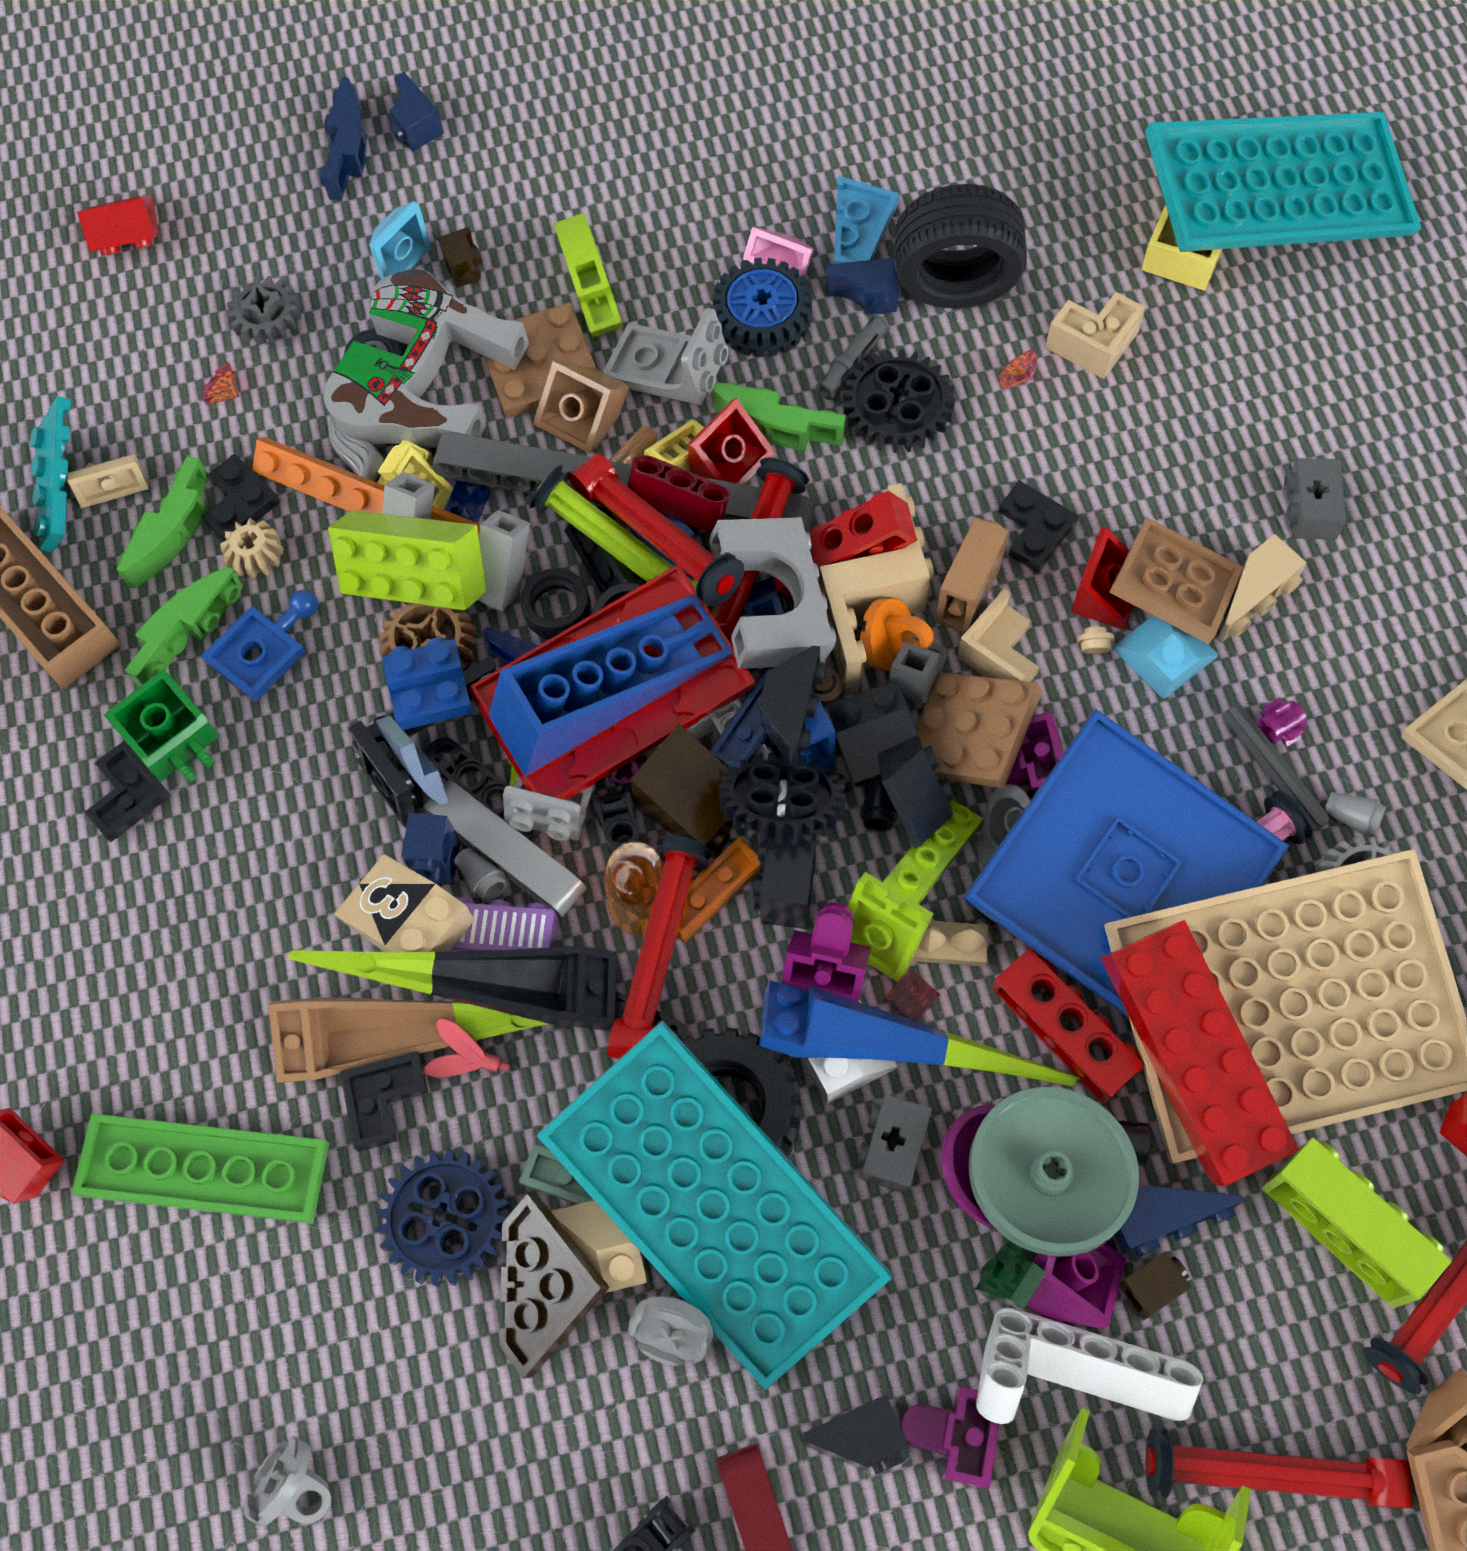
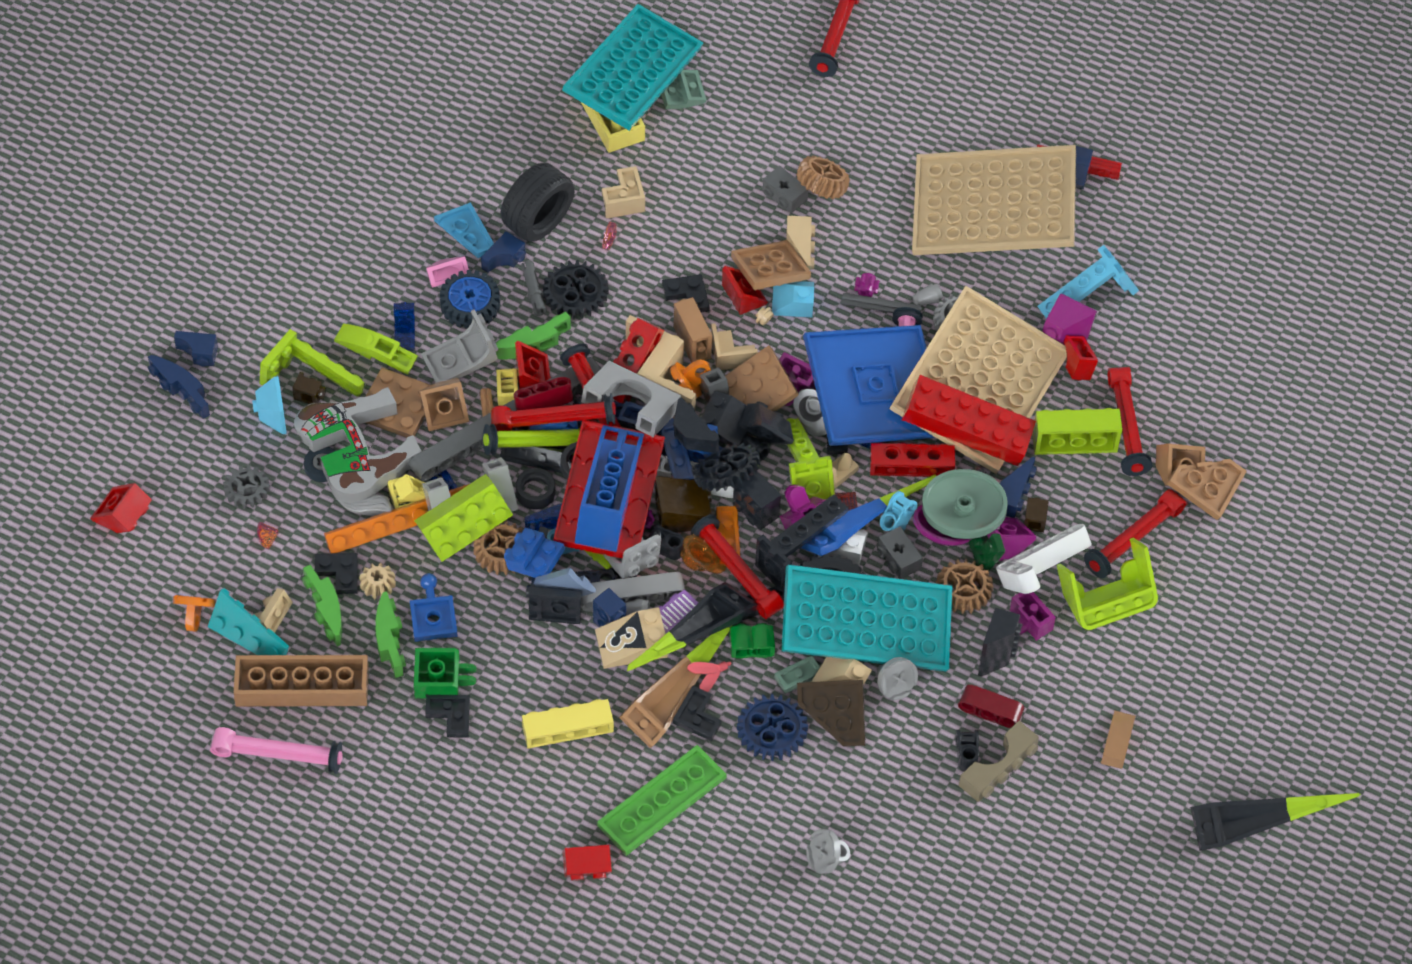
camera: 55 degrees left, 10 degrees down
(31, 390) = (193, 609): none -> orange tile
(217, 943) = (567, 723): none -> light yellow brick
(475, 192) = (290, 346): none -> lime bracket
(559, 1064) = (752, 641): none -> green brick
(652, 278) = (404, 325): none -> clear blue bracket
(767, 988) = (773, 554): none -> black bracket
(948, 1287) = (962, 578): none -> medium nougat gear
(950, 1085) = (898, 512): none -> medium azure piece
(1327, 269) = (684, 91): none -> sand green slope
(1383, 523) = (823, 177): none -> medium nougat gear

